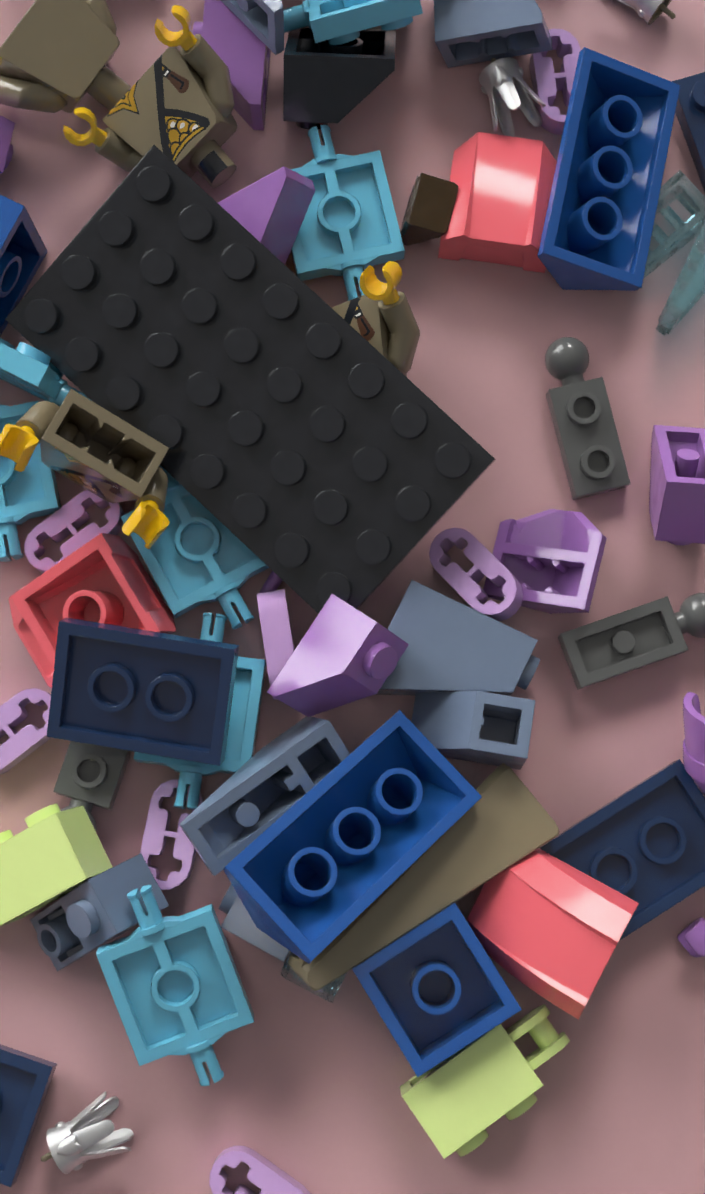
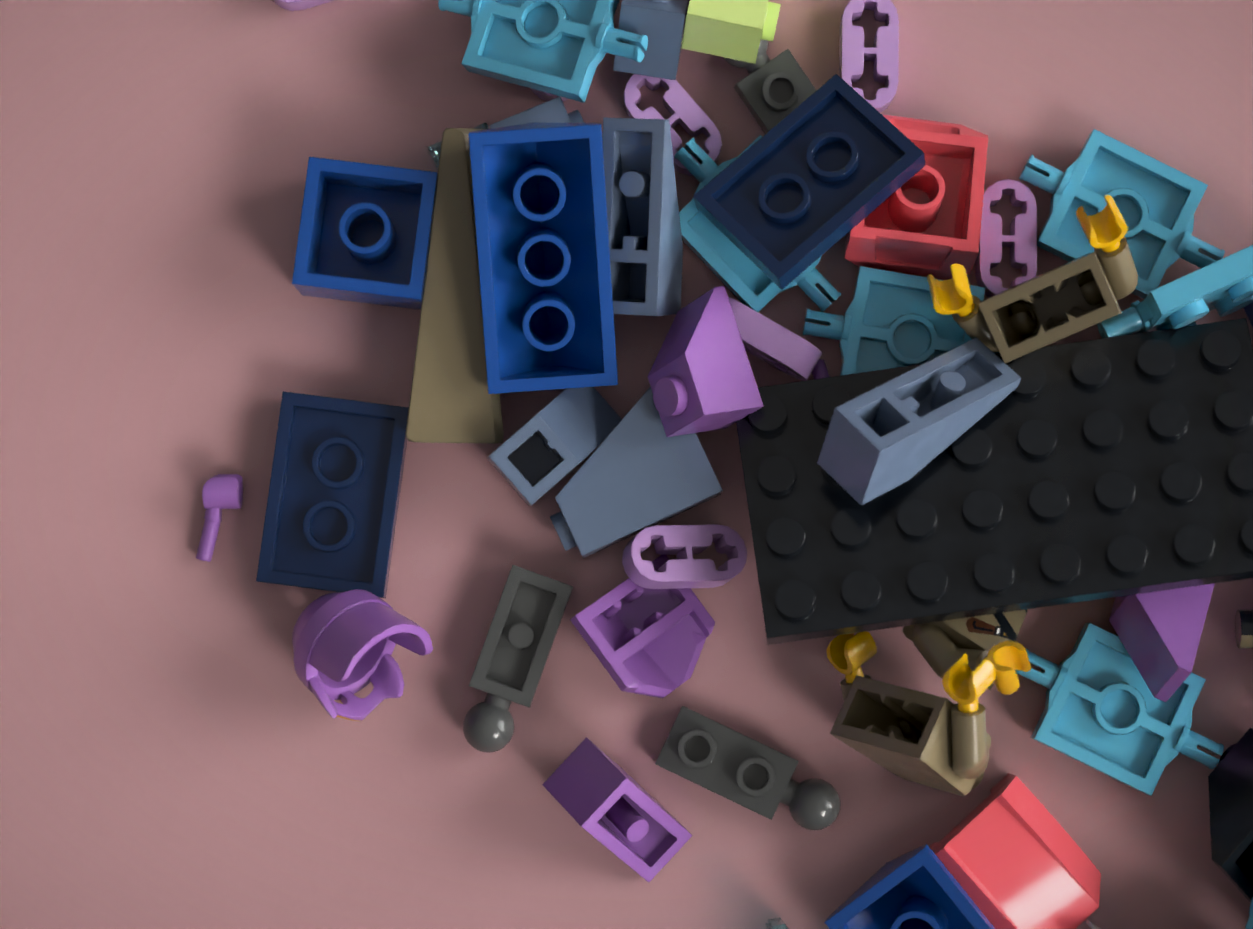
camera: 130 degrees right, 5 degrees up
(259, 476) = (912, 419): none -> sand blue slope
(428, 209) = (1055, 792): dark brown slope -> none
(470, 322) = (910, 730): none -> dark tan torso
(482, 1084) = (260, 212): yellowish green brick -> none
(551, 927) = (335, 370): coral slope -> none

